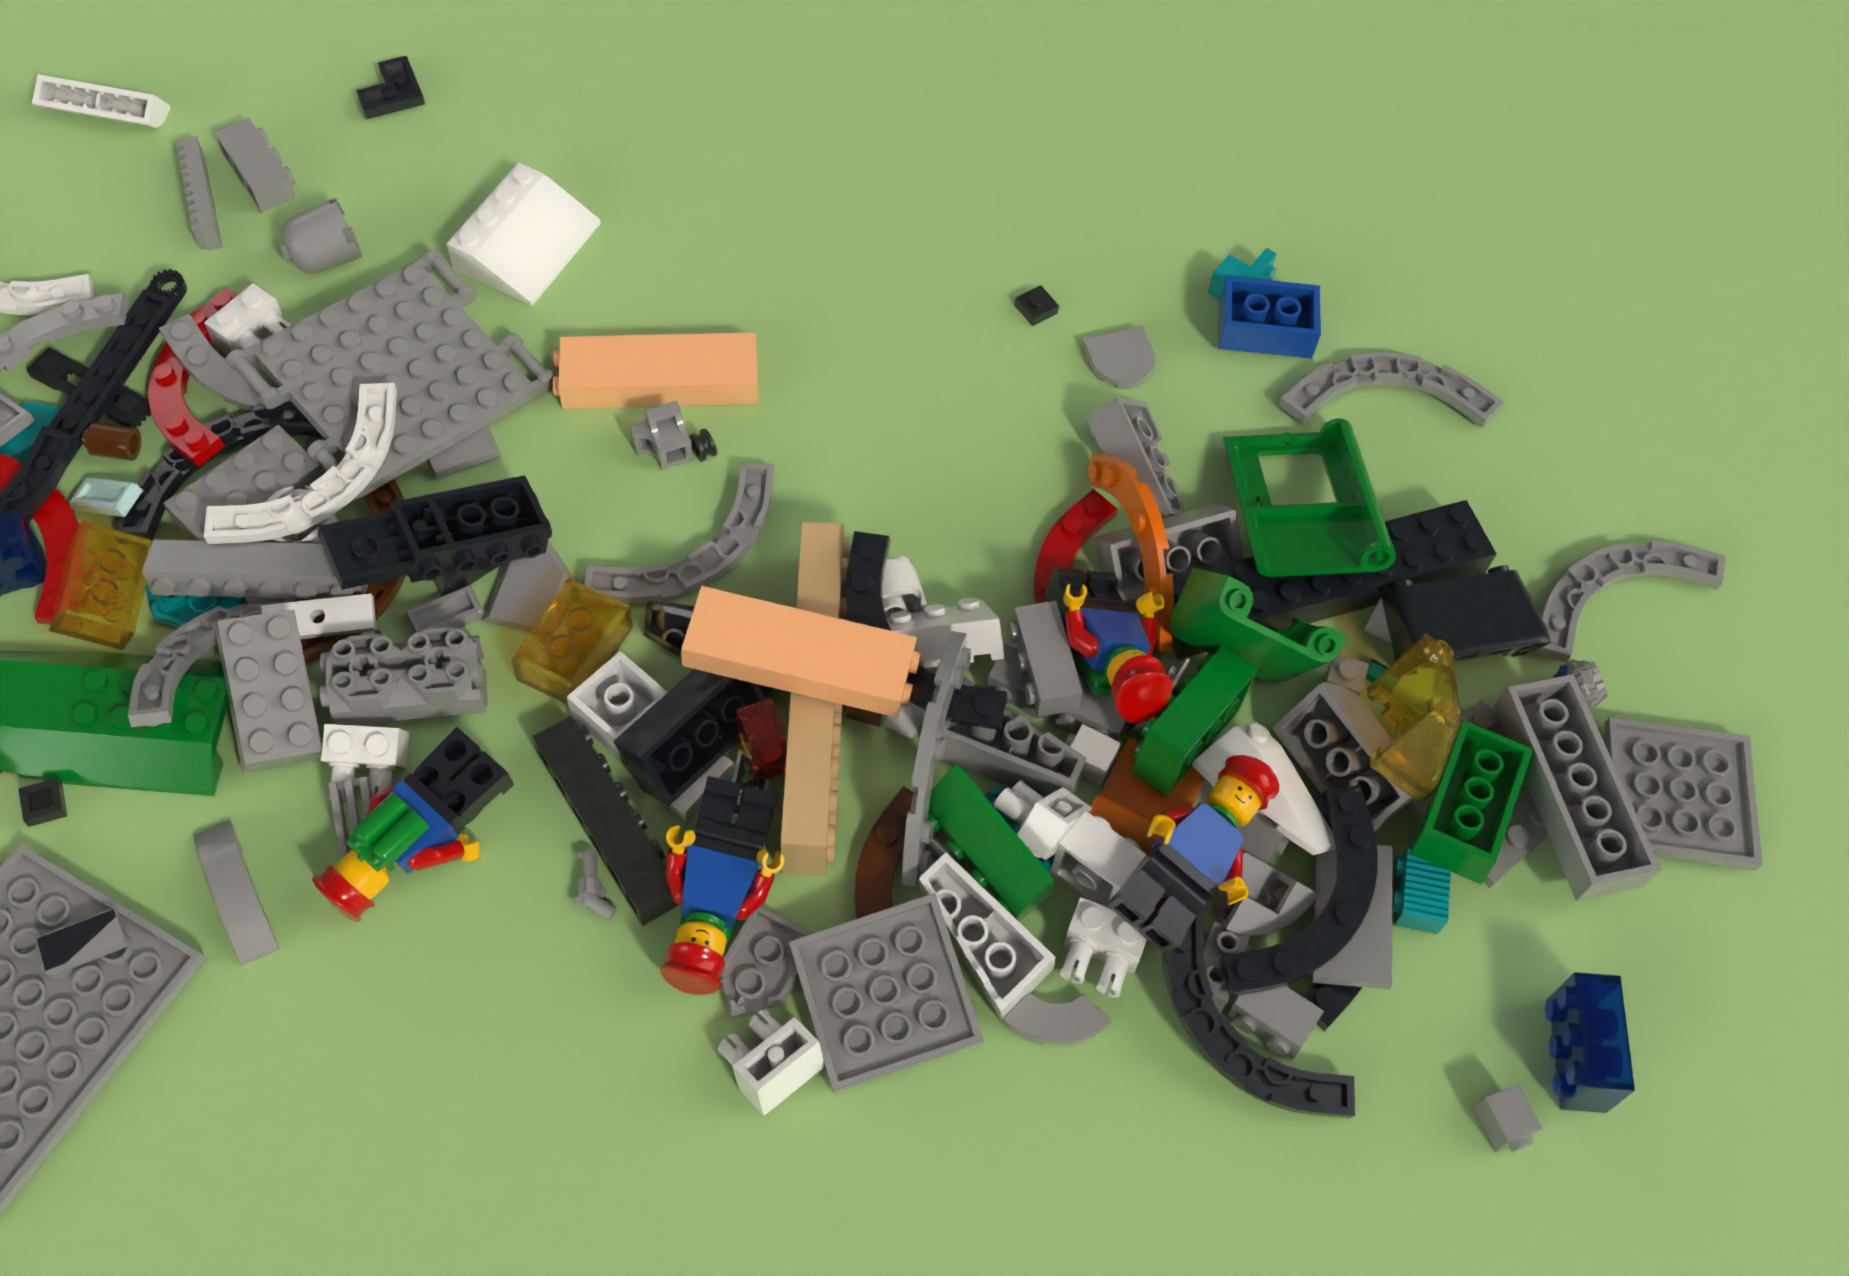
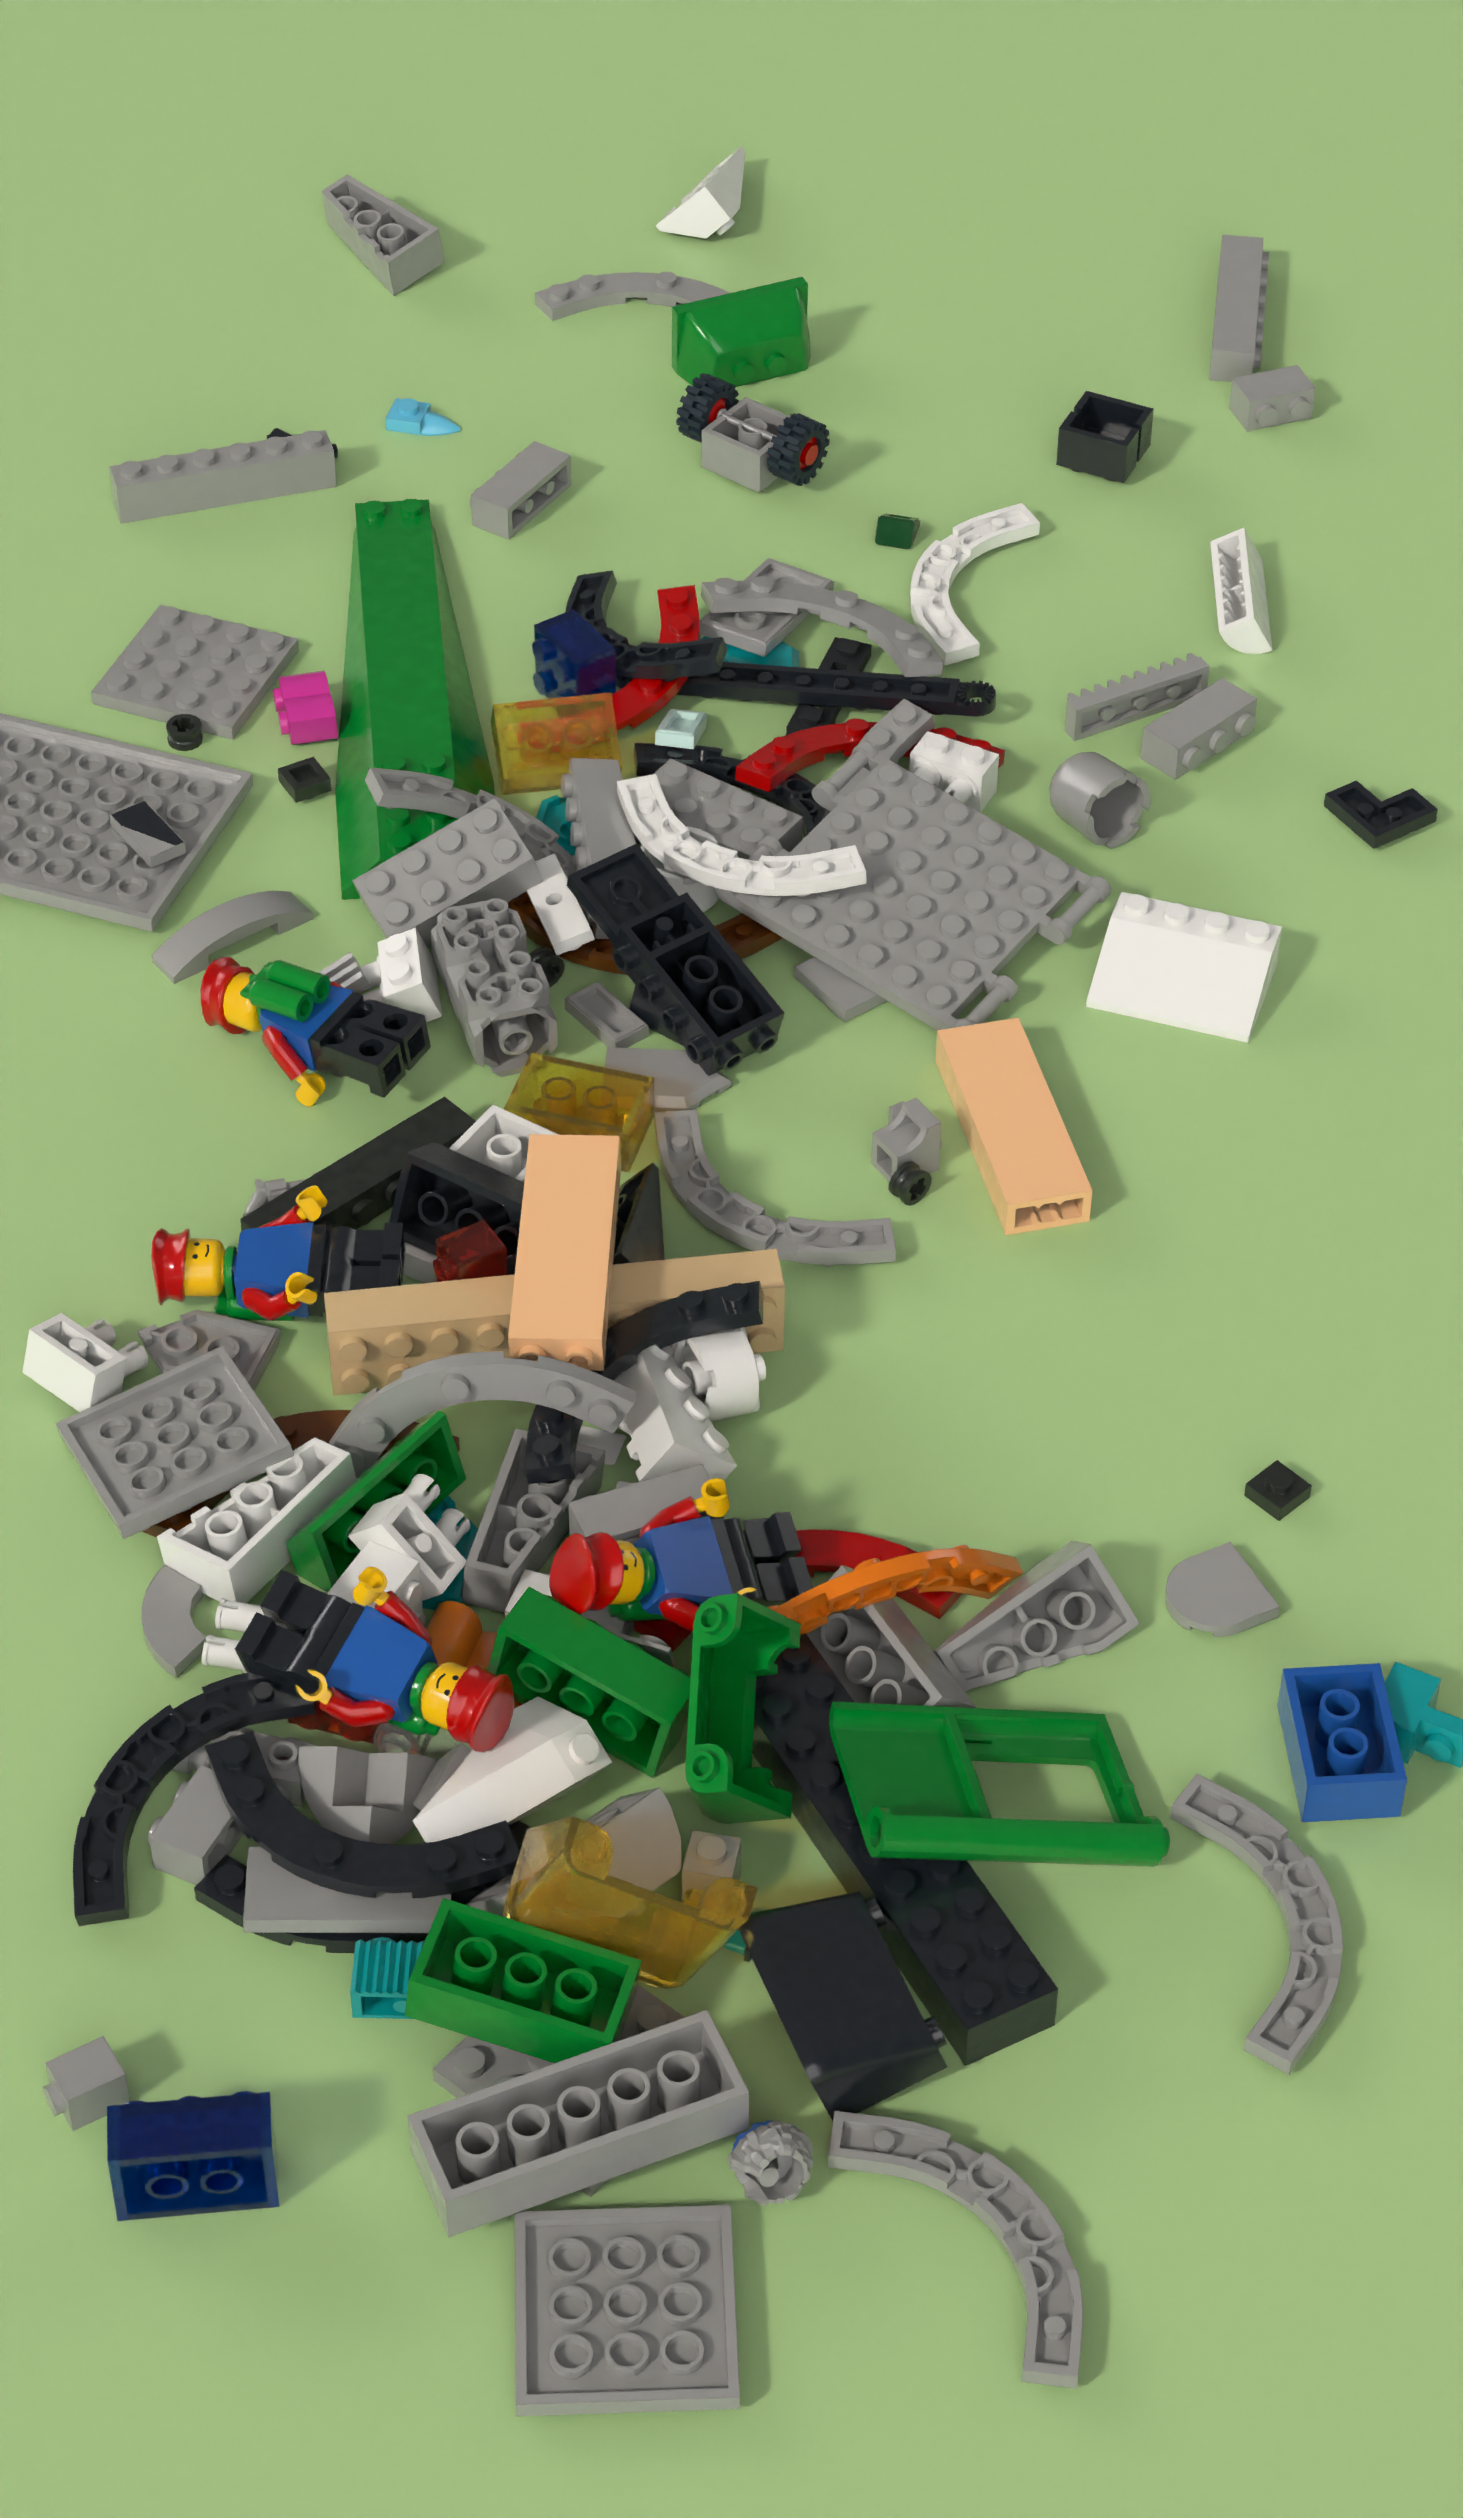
camera: 85 degrees right, 15 degrees down
(112, 441) = (757, 717): reddish brown brick -> none

